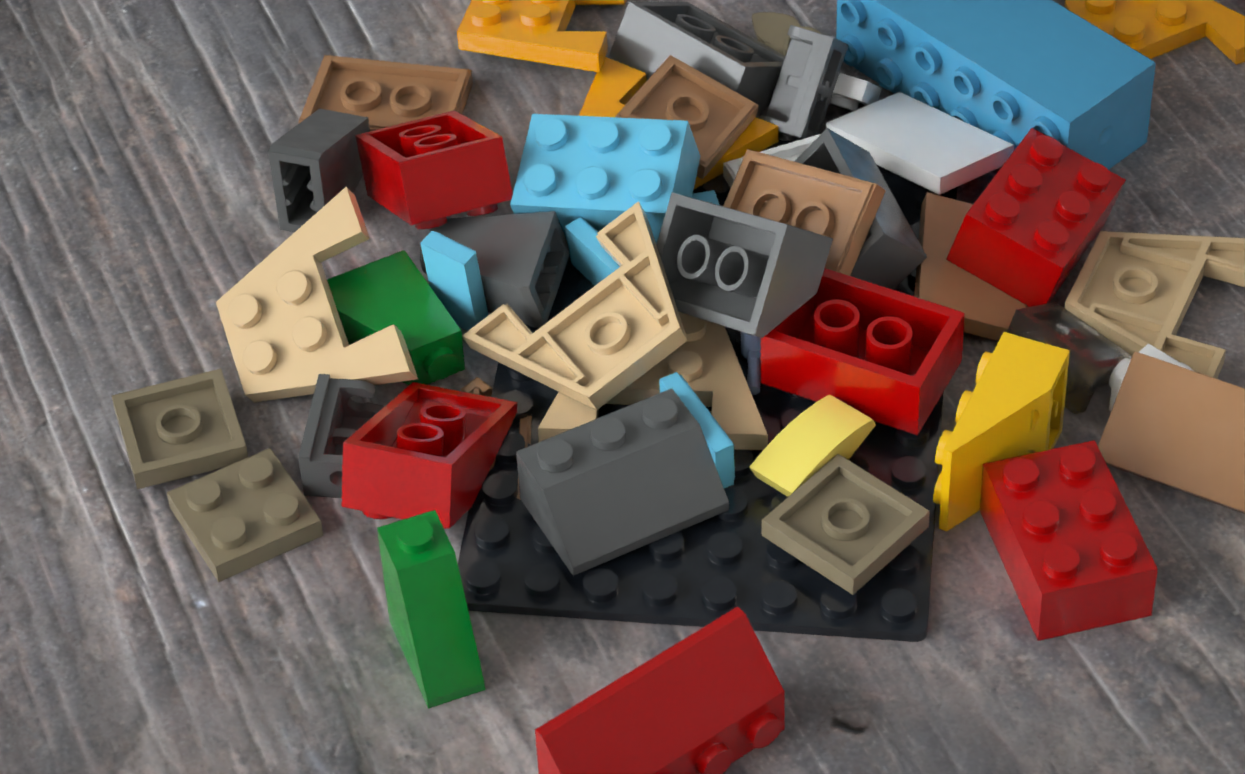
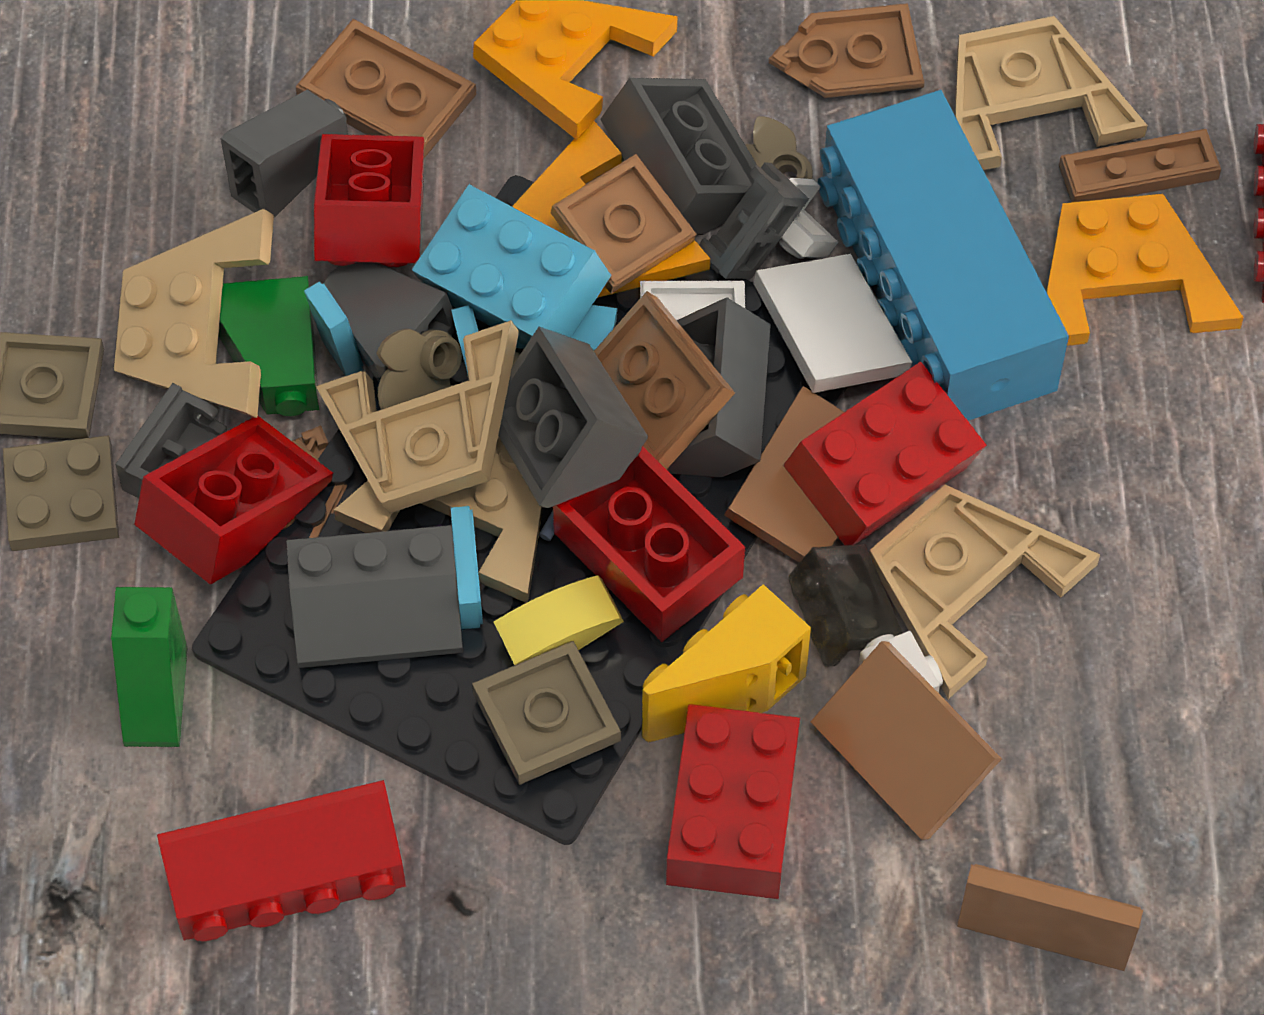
camera: 20 degrees right, 15 degrees up
(559, 277) = (416, 364): none -> dark tan plate

